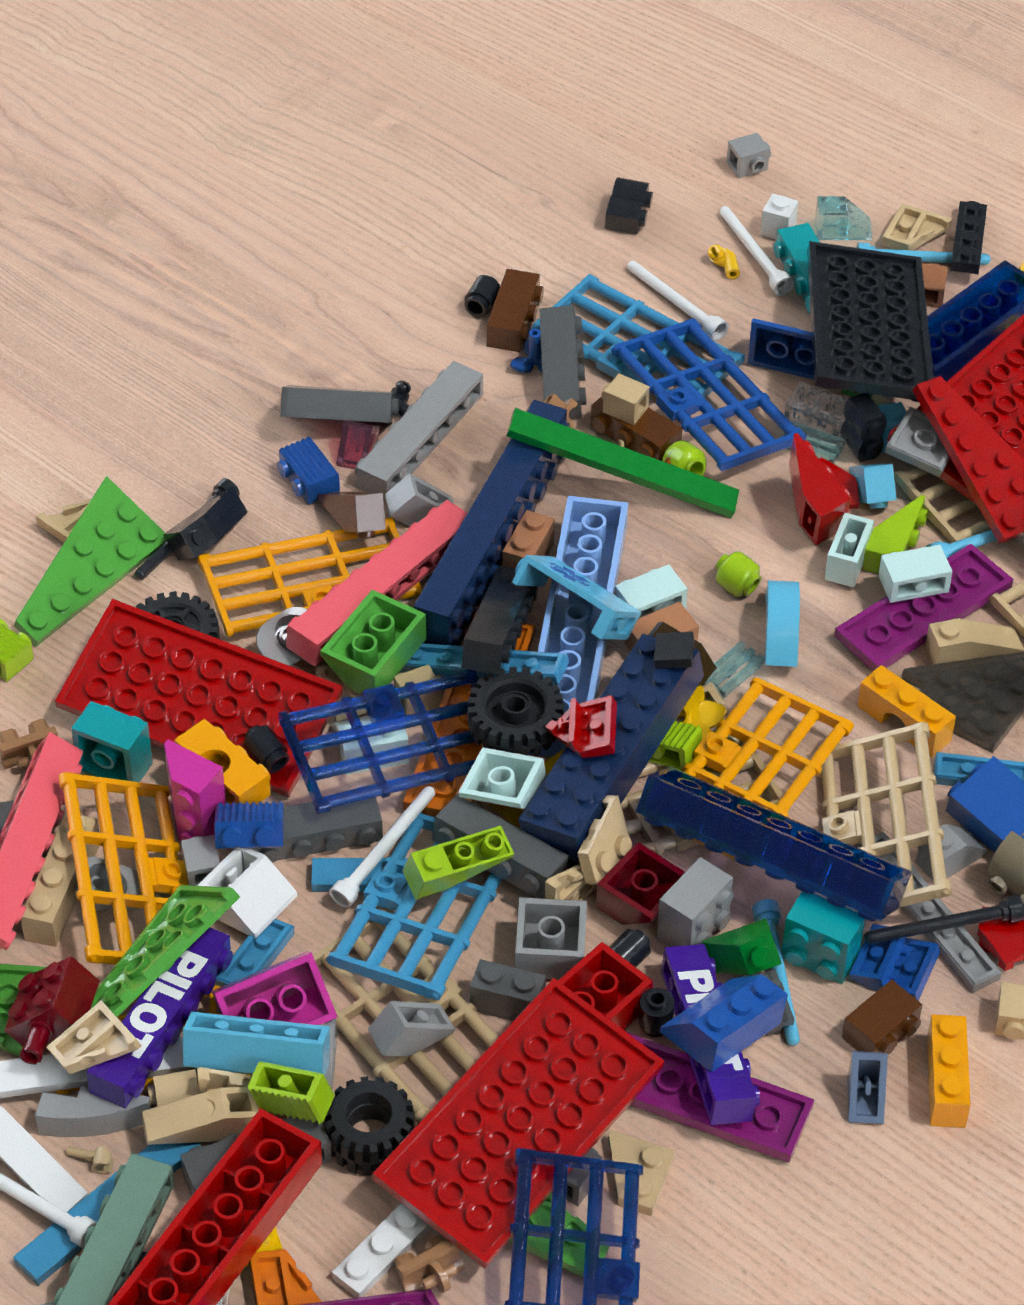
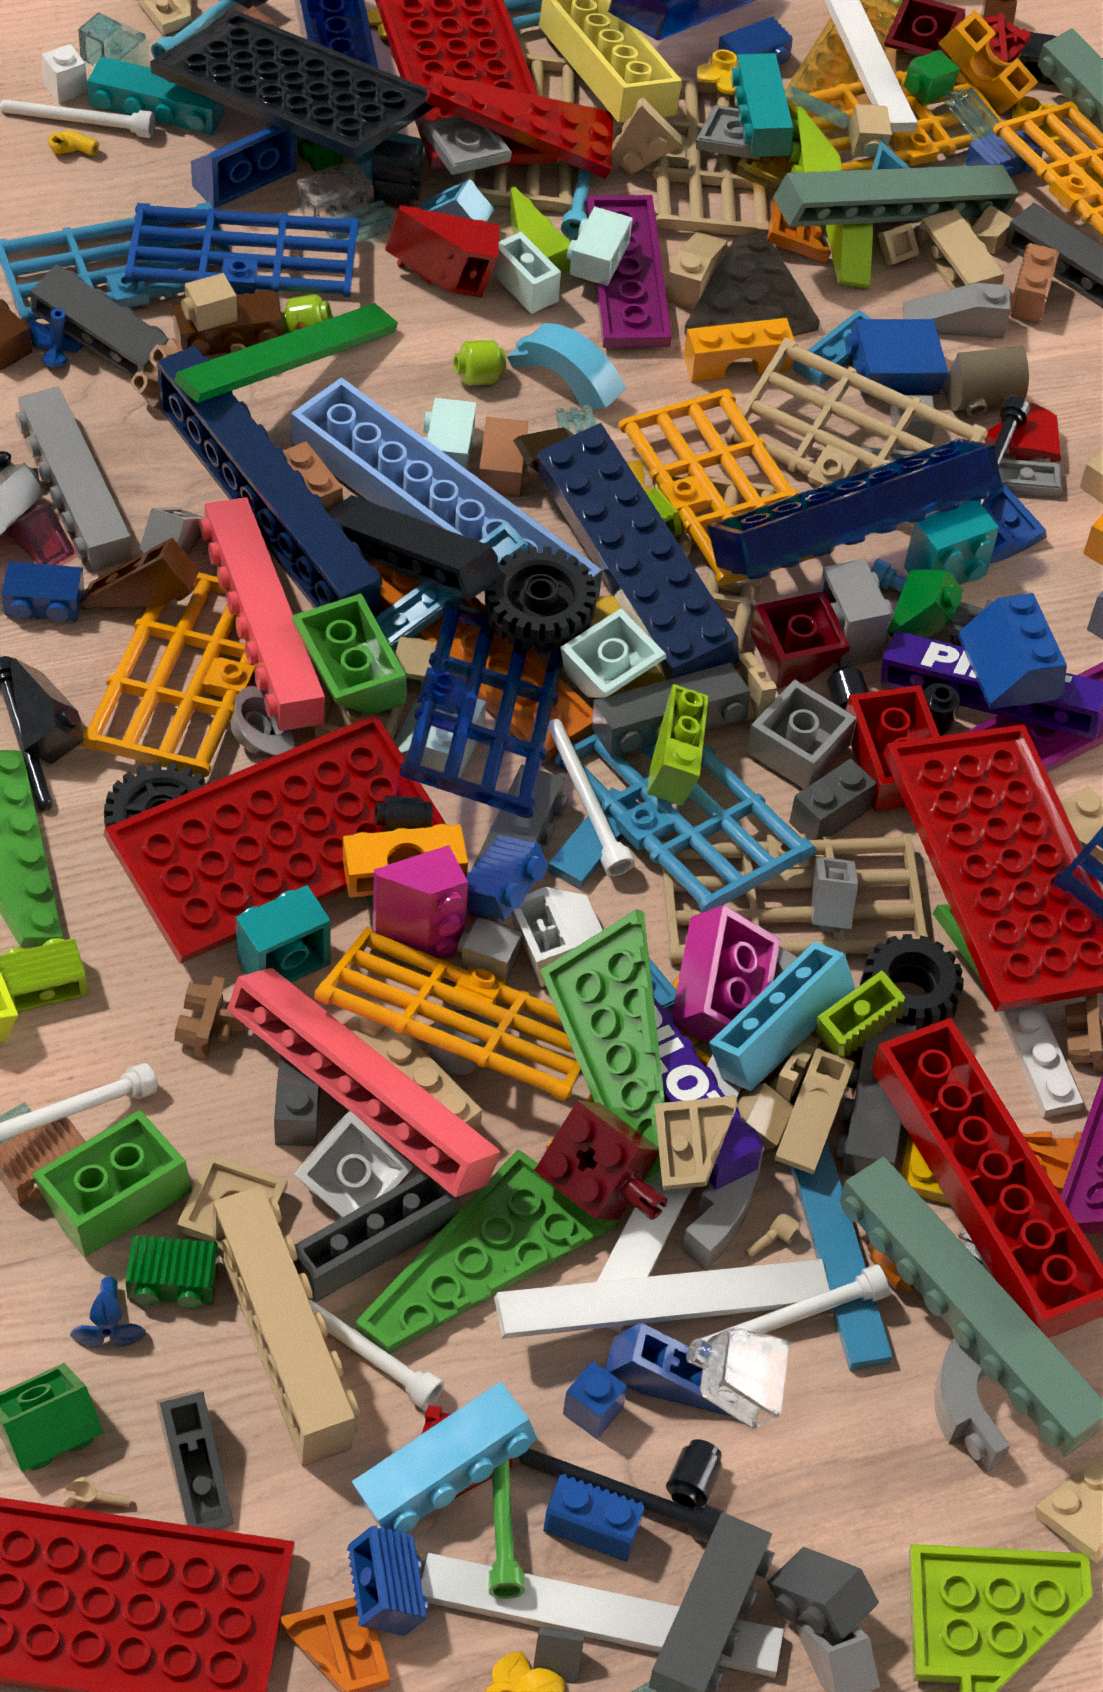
camera: 60 degrees left, 5 degrees up
(587, 727) = (624, 550): red slope -> none
(606, 842) = (745, 625): tan wing -> none
(616, 616) = (491, 460): medium azure panel -> none
(674, 650) = (593, 436): black piece -> none
(712, 325) = (153, 195): white piece -> none
(883, 1020) = (1058, 567): reddish brown brick -> none

